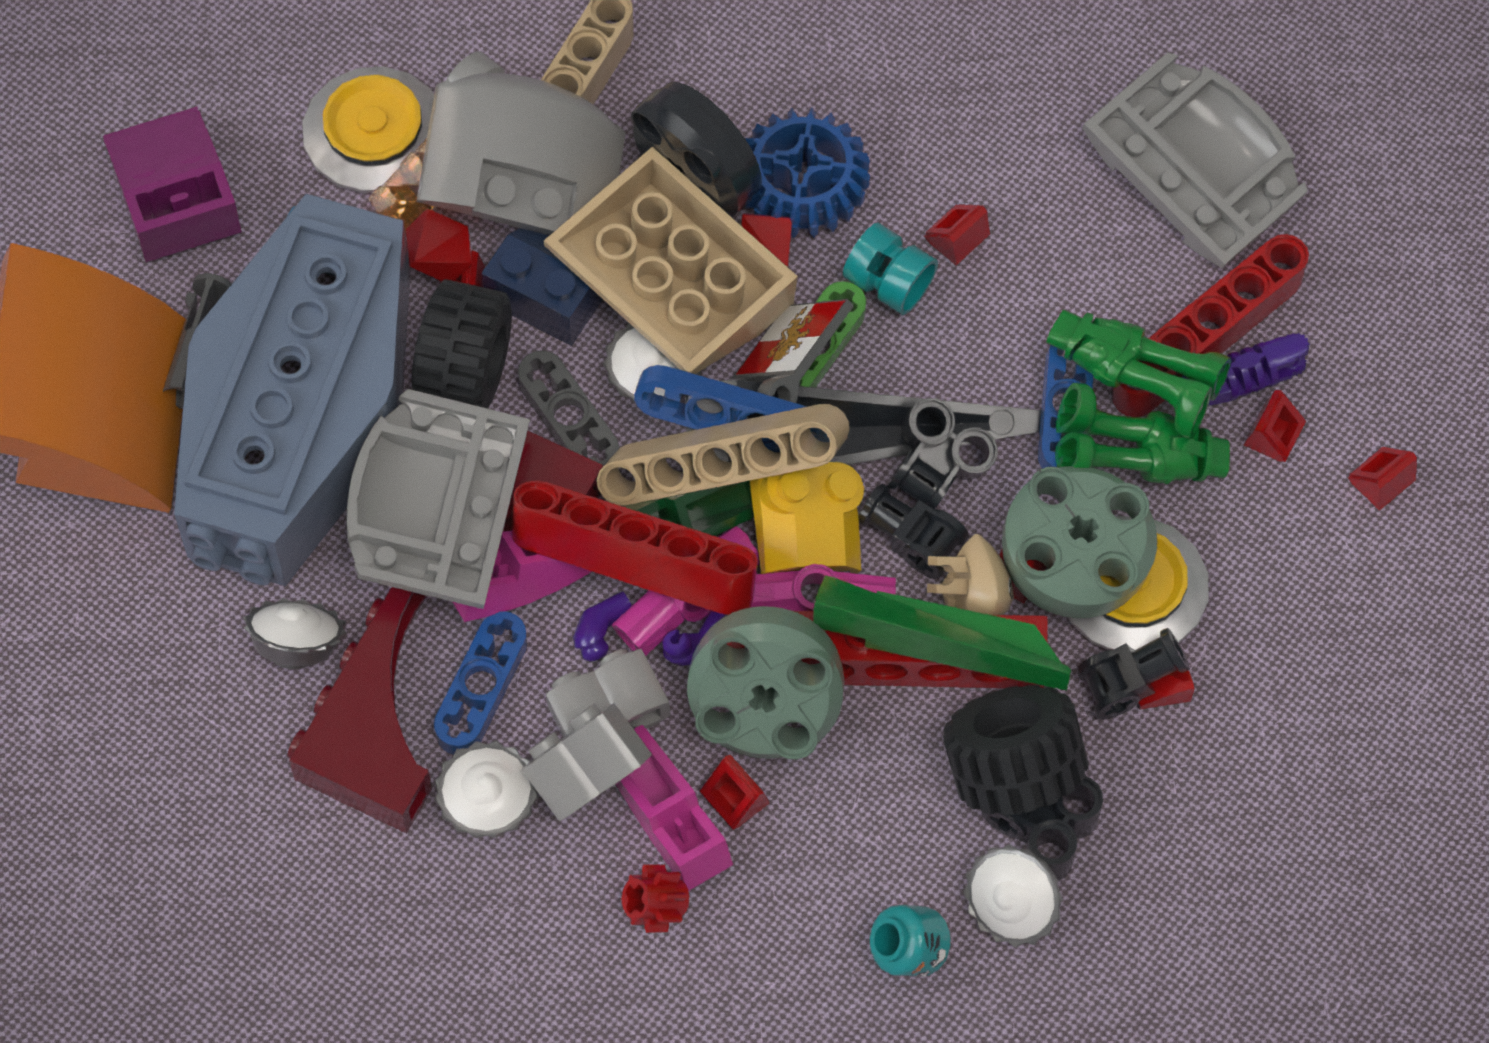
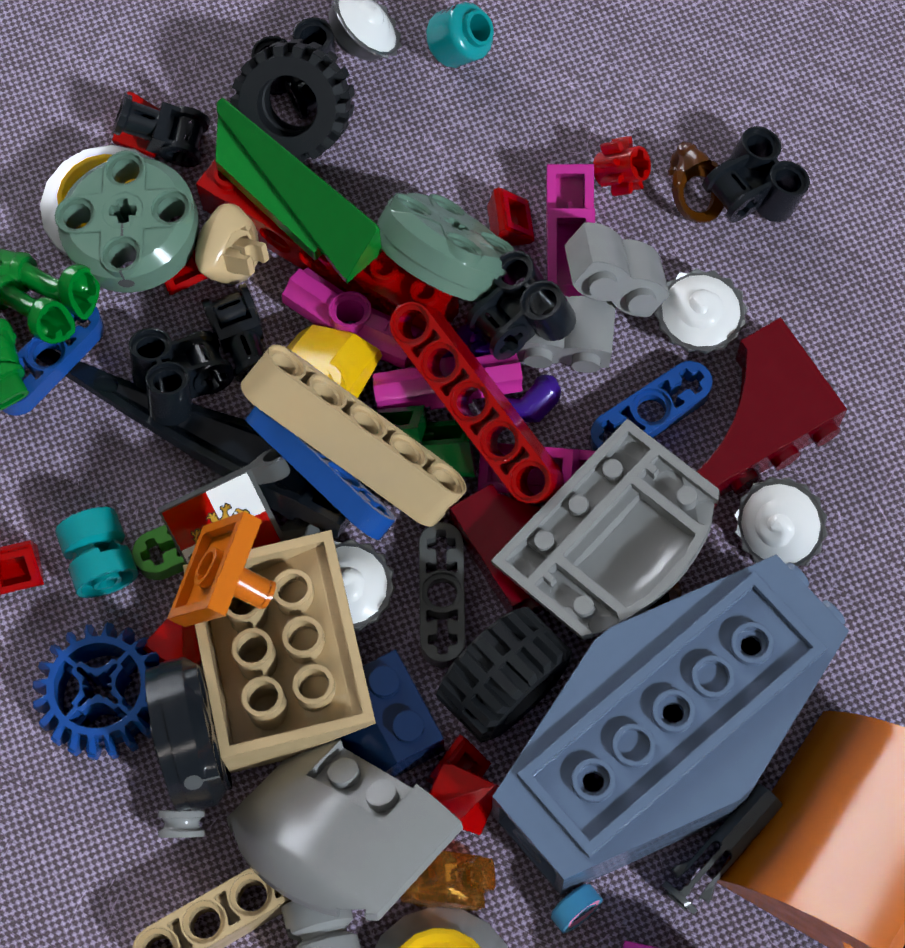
camera: 145 degrees left, 5 degrees up
(512, 953) = (757, 180): none -> black piece
(582, 937) = (689, 163): none -> reddish brown piece
(652, 662) = (520, 308): none -> black piece
(750, 257) = (219, 573): none -> orange tile

